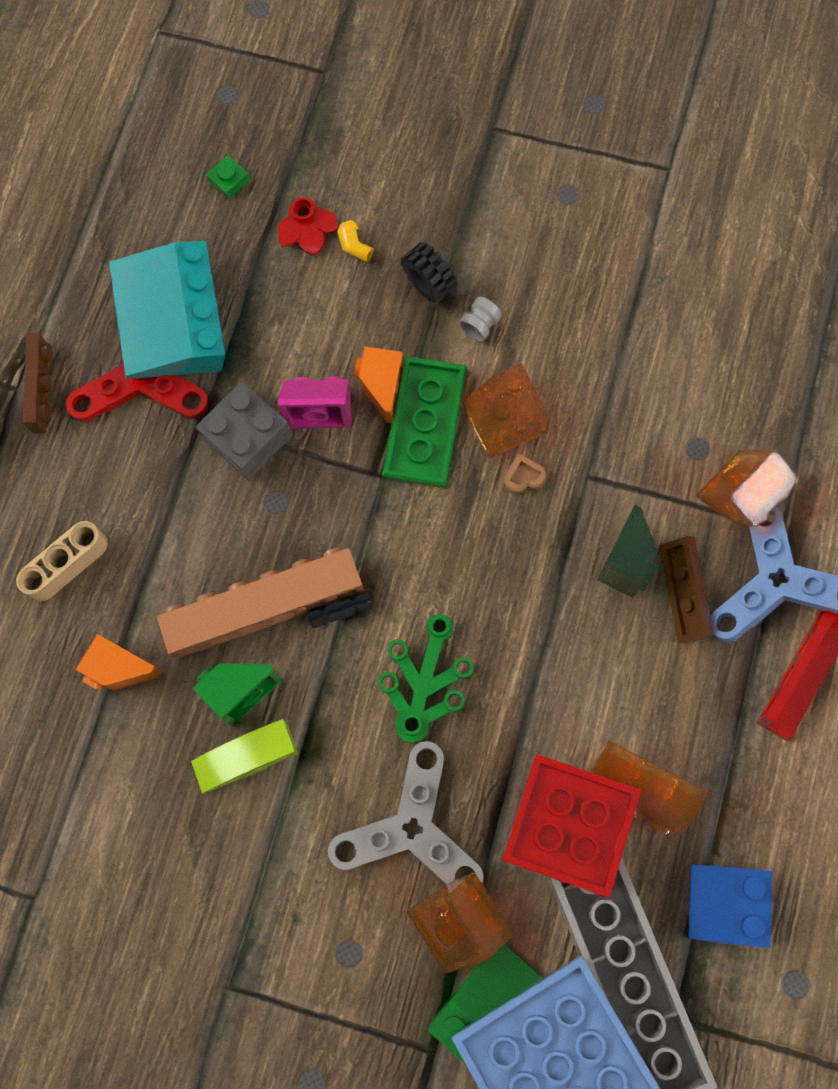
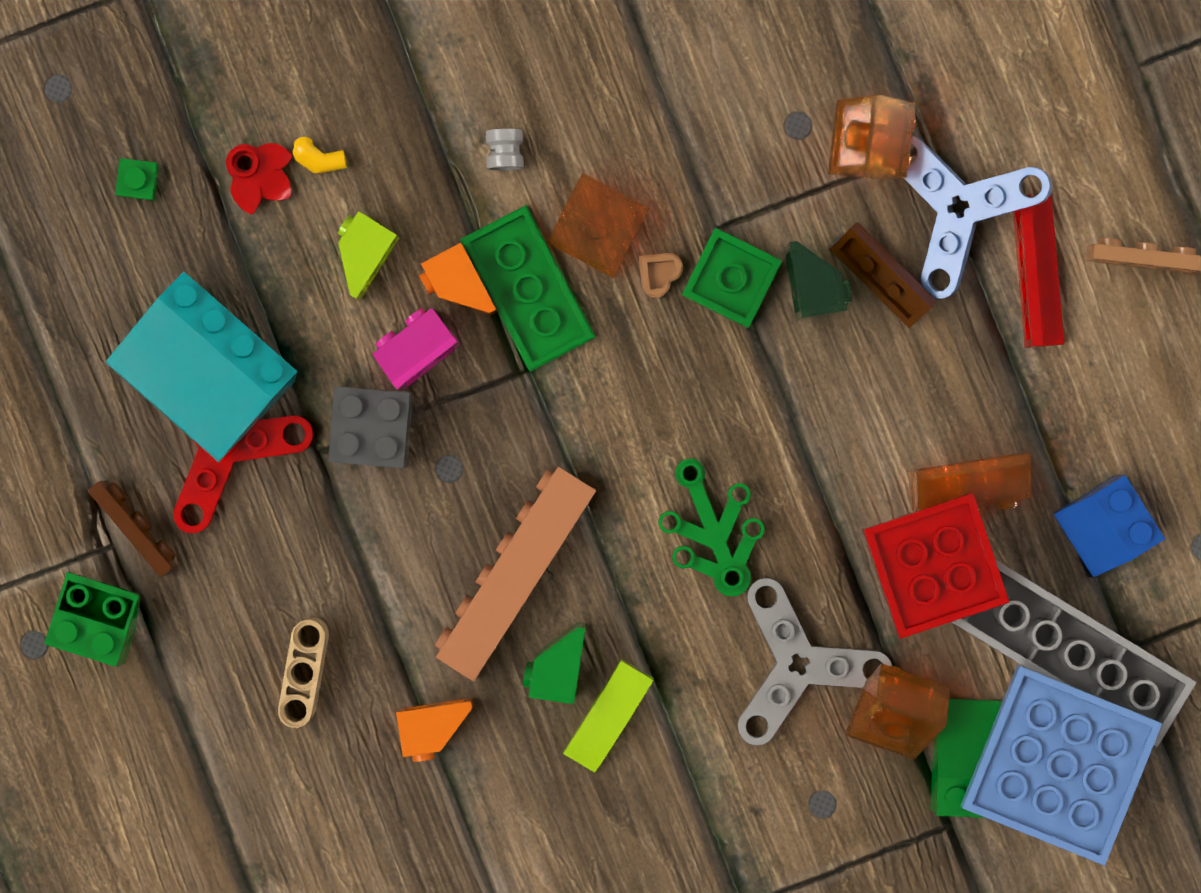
camera: 45 degrees left, 15 degrees up
(333, 318) = (363, 251): none -> lime slope
(339, 609) = (587, 524): black axle -> none
(428, 272) = (422, 142): black tyre -> none
(573, 513) = (731, 278): none -> green plate

